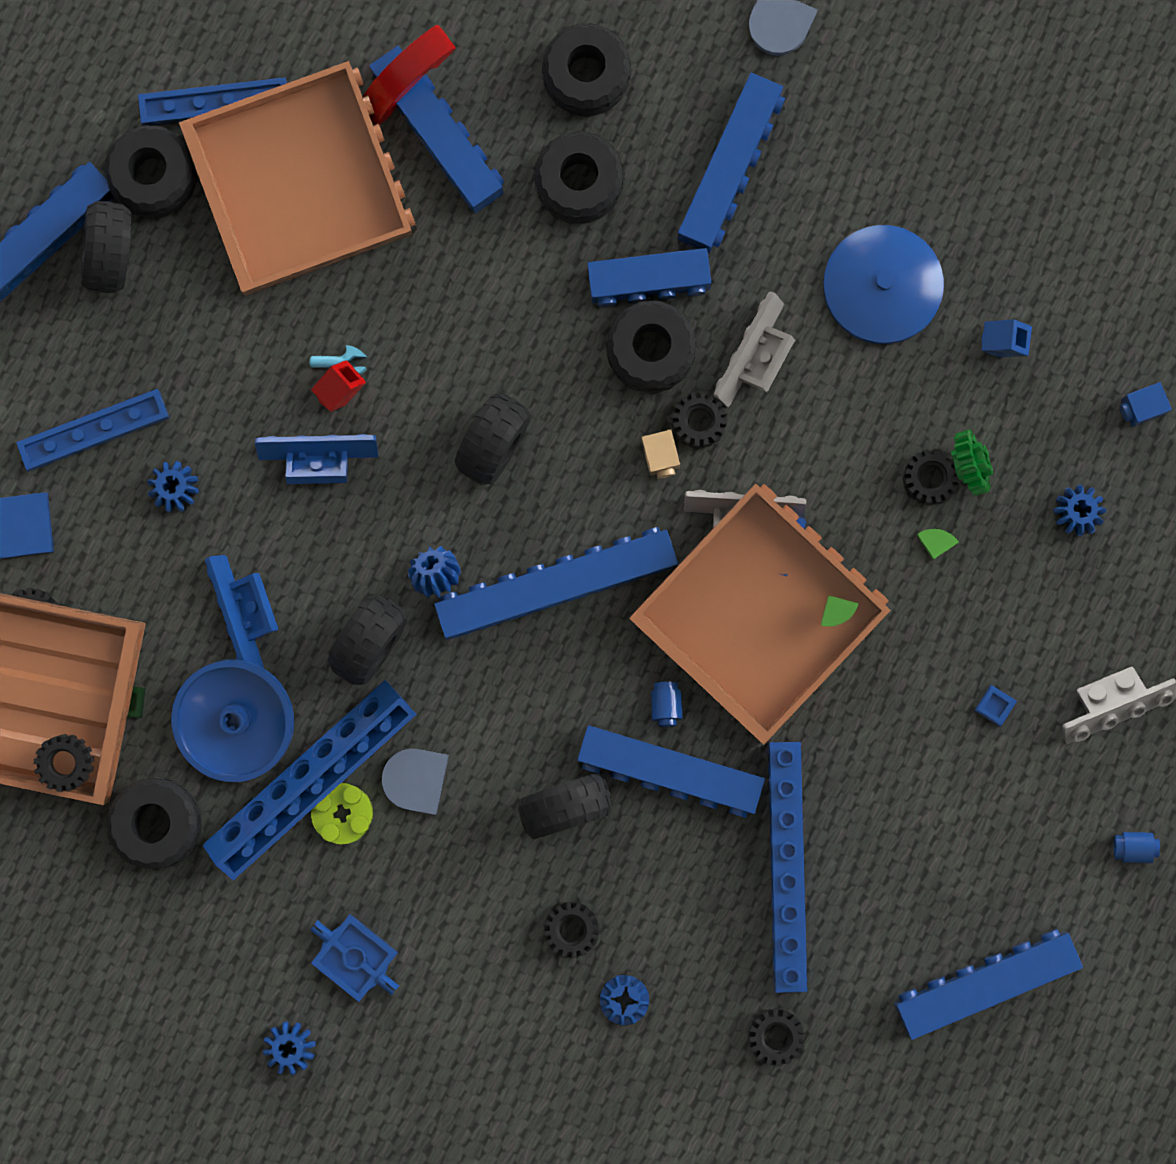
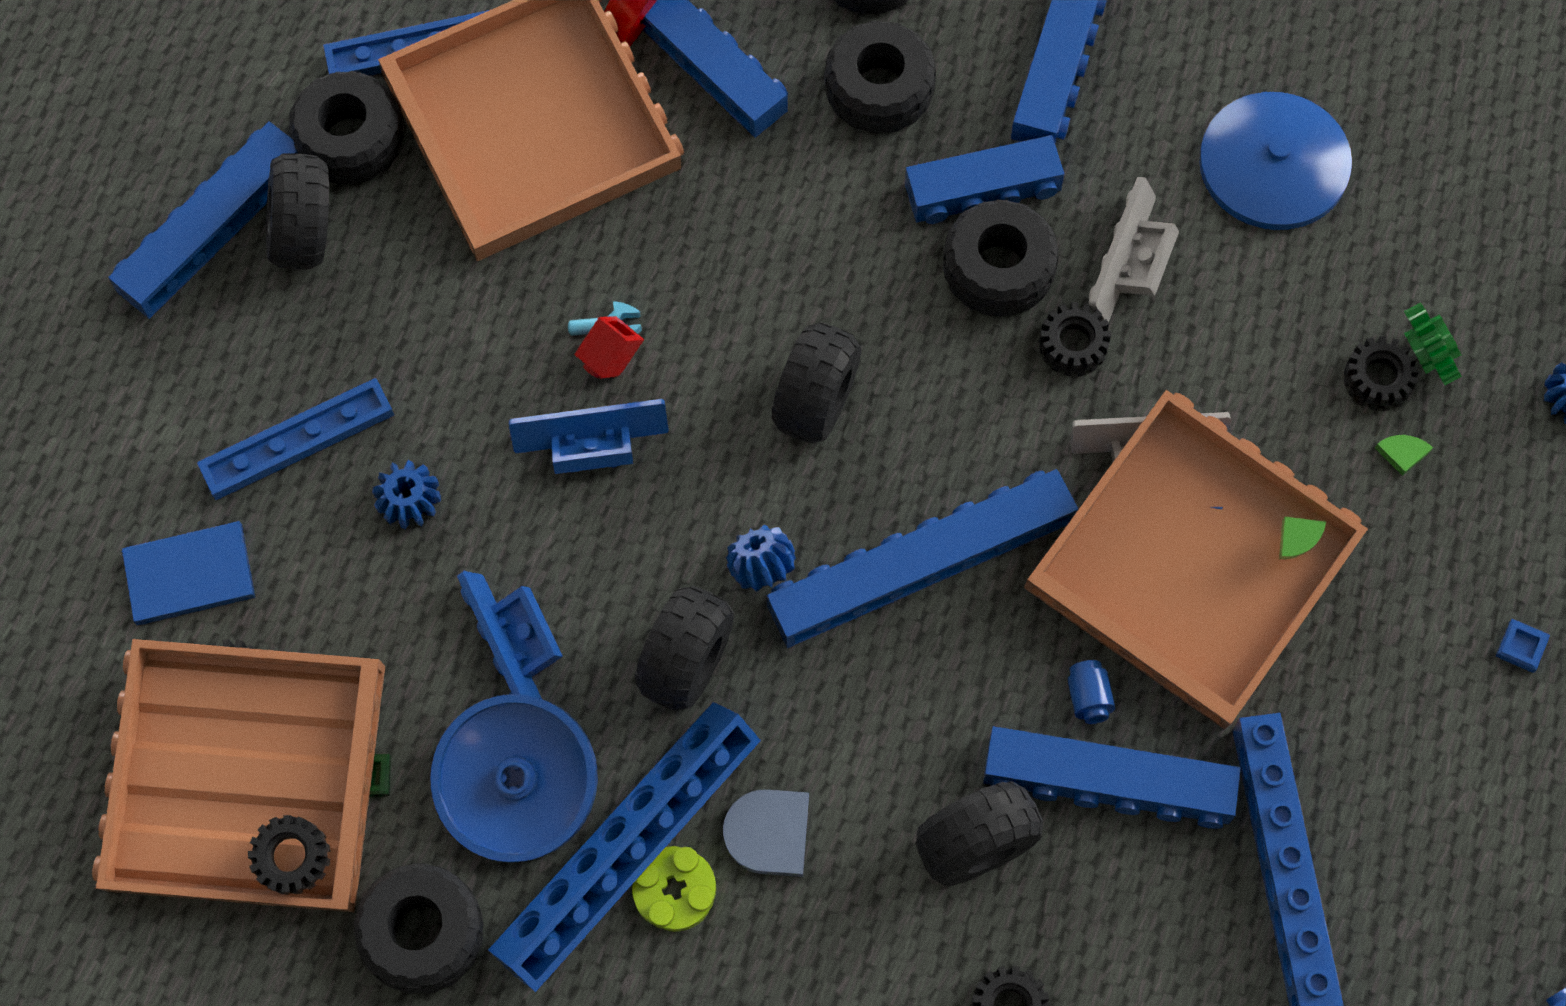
camera: 10 degrees left, 15 degrees down
(661, 454) = (1032, 383): tan brick -> none
(1006, 338) = (1442, 199): blue brick -> none

